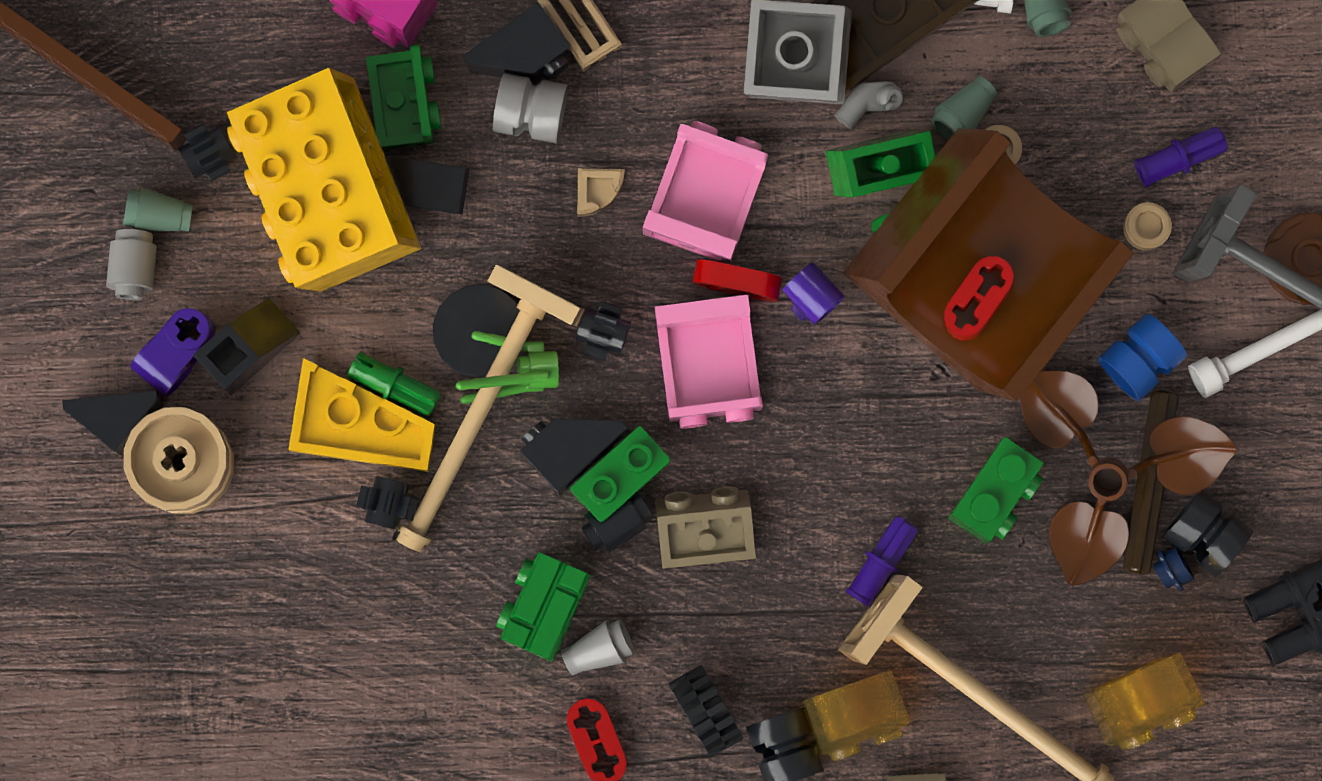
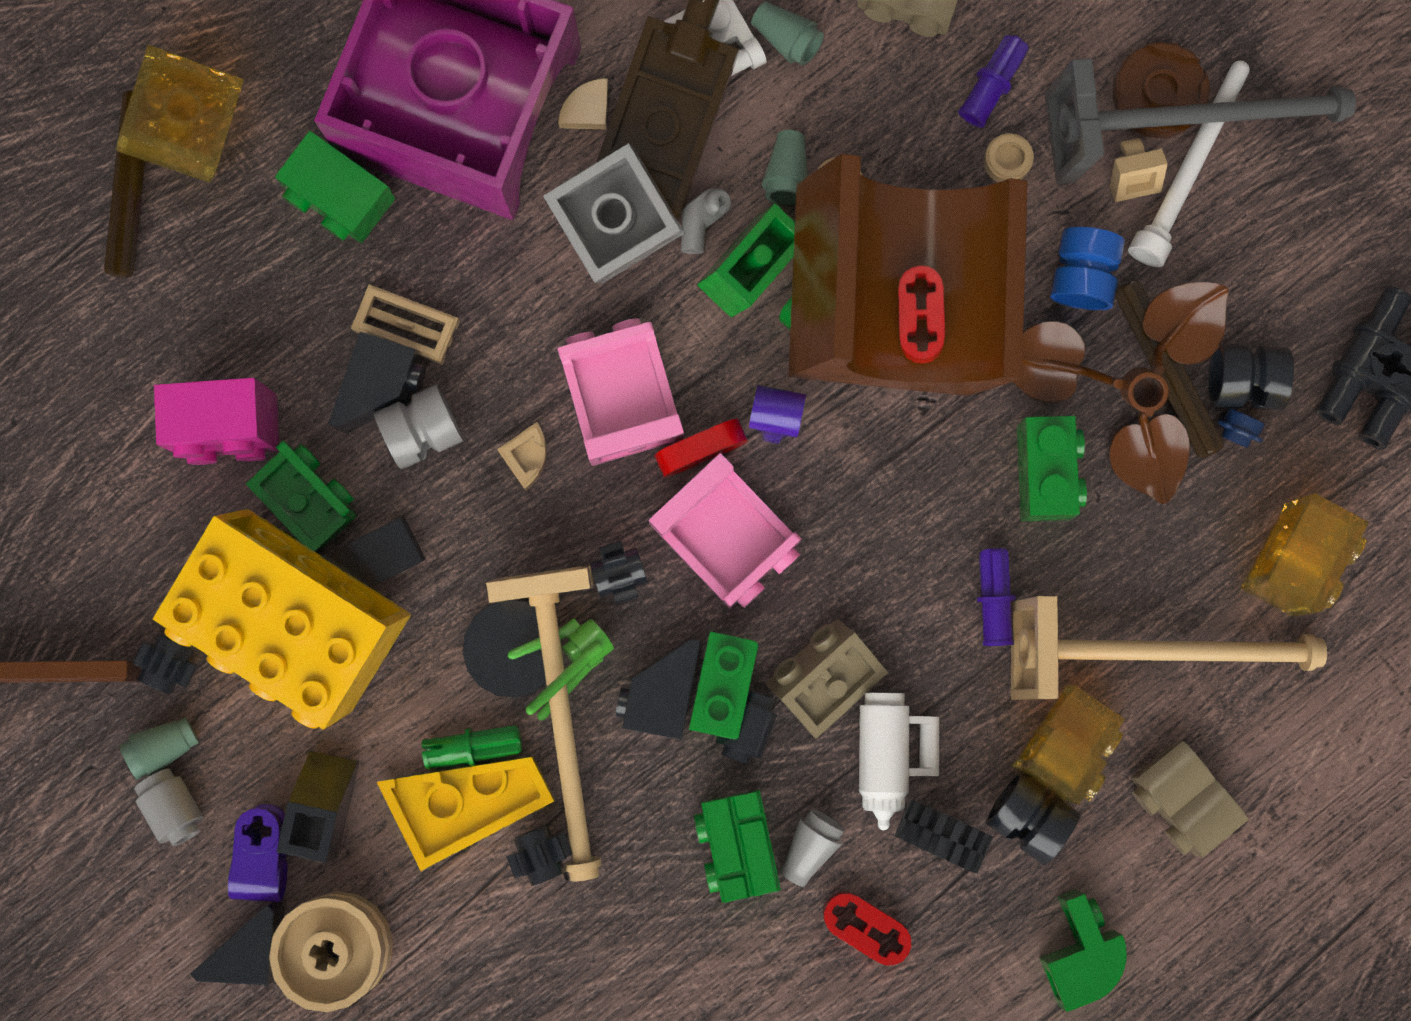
camera: 35 degrees left, 0 degrees up
(709, 617) = (885, 753): none -> white piece
(1239, 309) = (1137, 171): none -> tan tile

